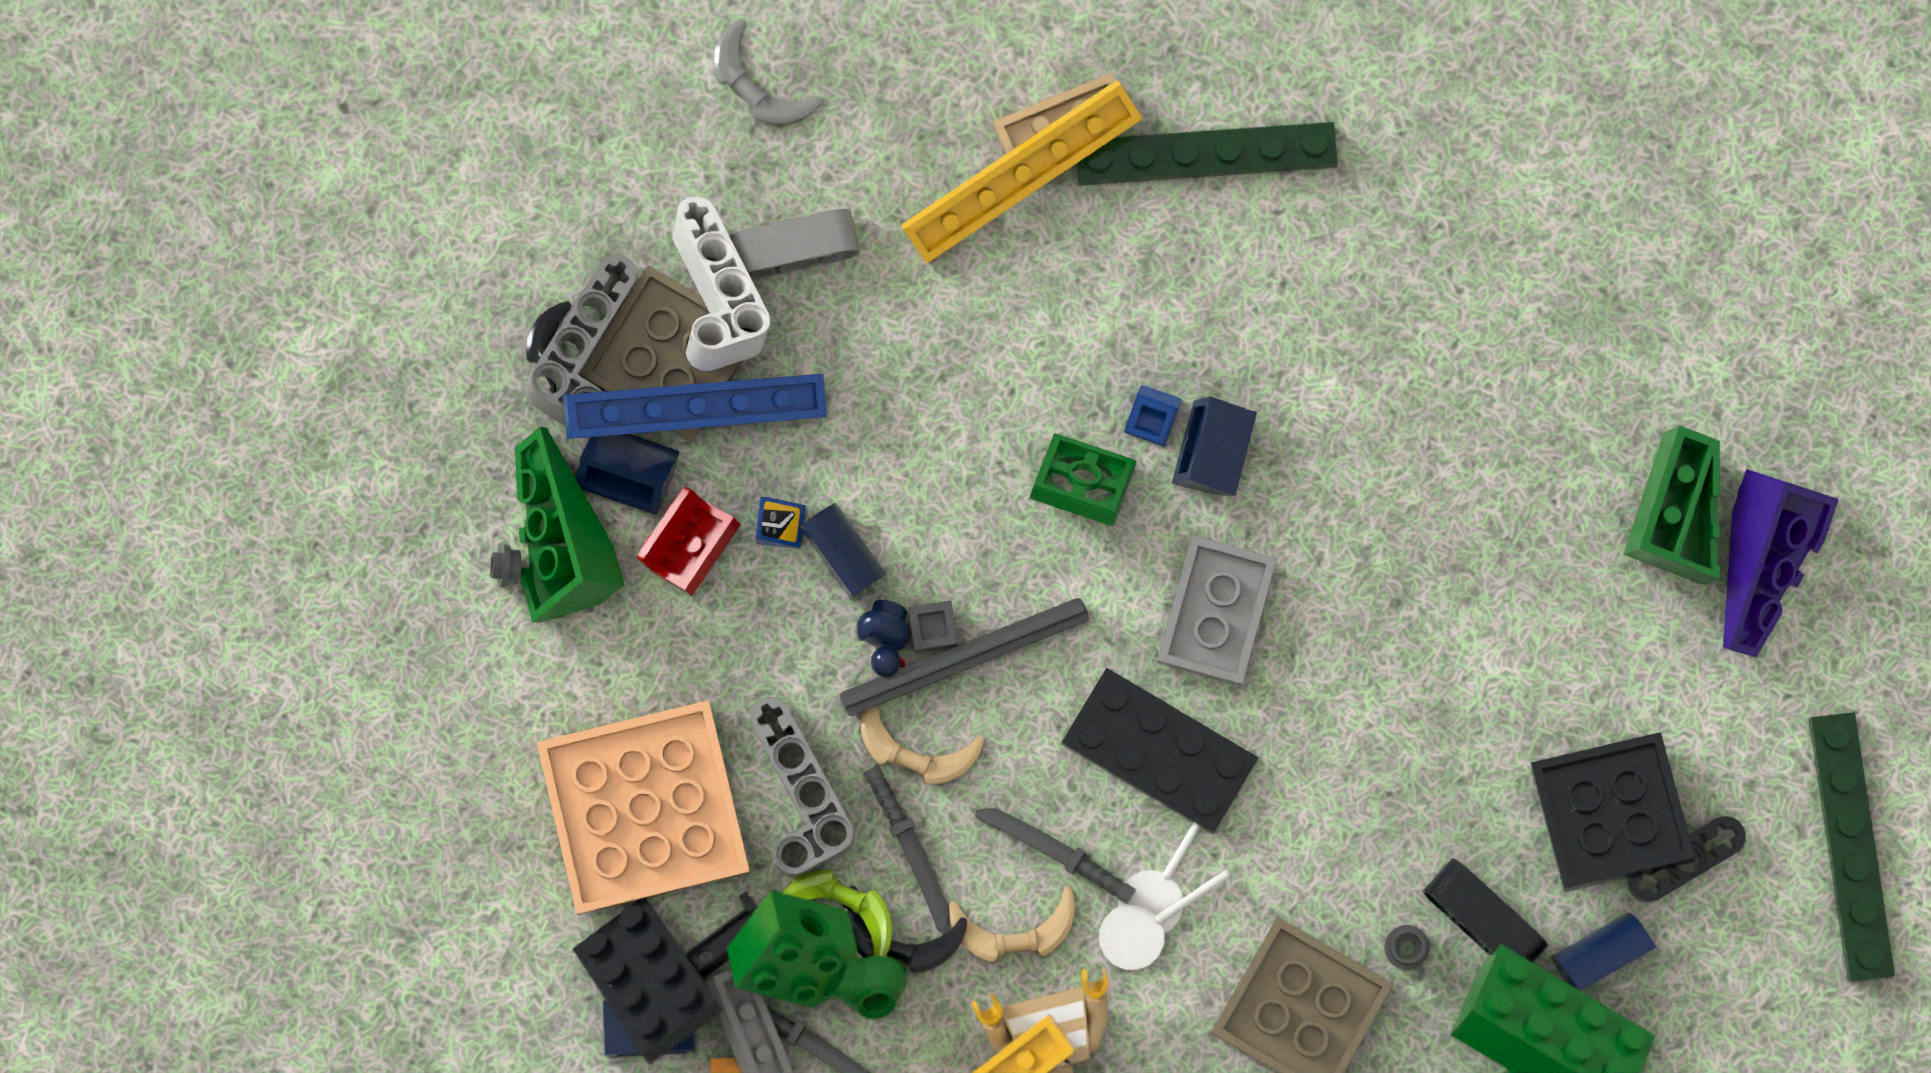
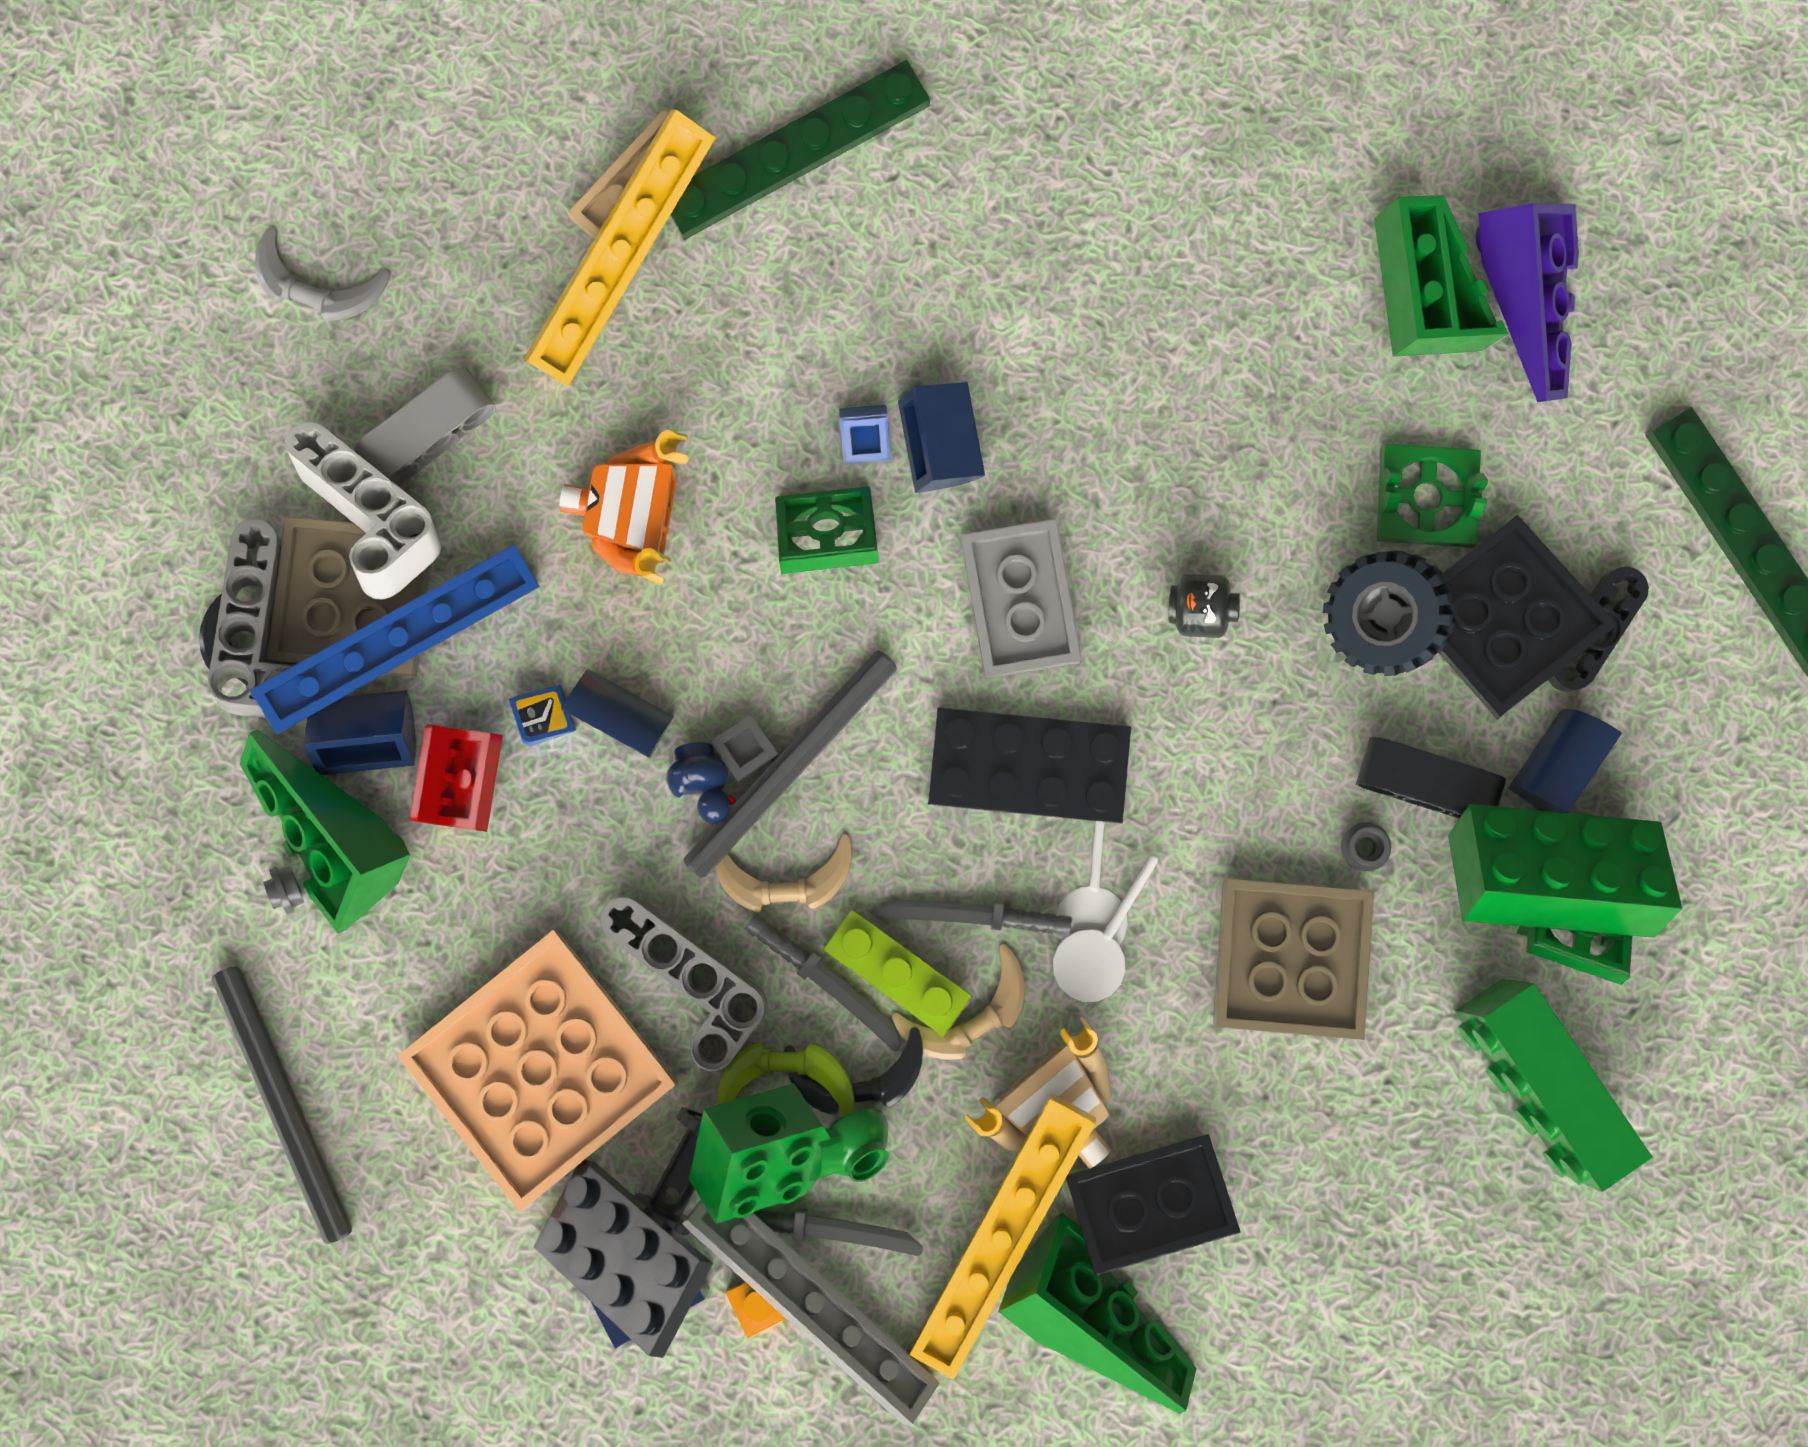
camera: 25 degrees left, 5 degrees up
(422, 739) = (281, 1105): none -> dark grey axle
(932, 385) = (630, 505): none -> torso
(972, 868) = (898, 973): none -> lime plate
(1365, 686) = (1203, 605): none -> pearl dark grey head
(1513, 761) = (1390, 612): none -> black wheel
(1641, 673) = (1463, 462): none -> green piece

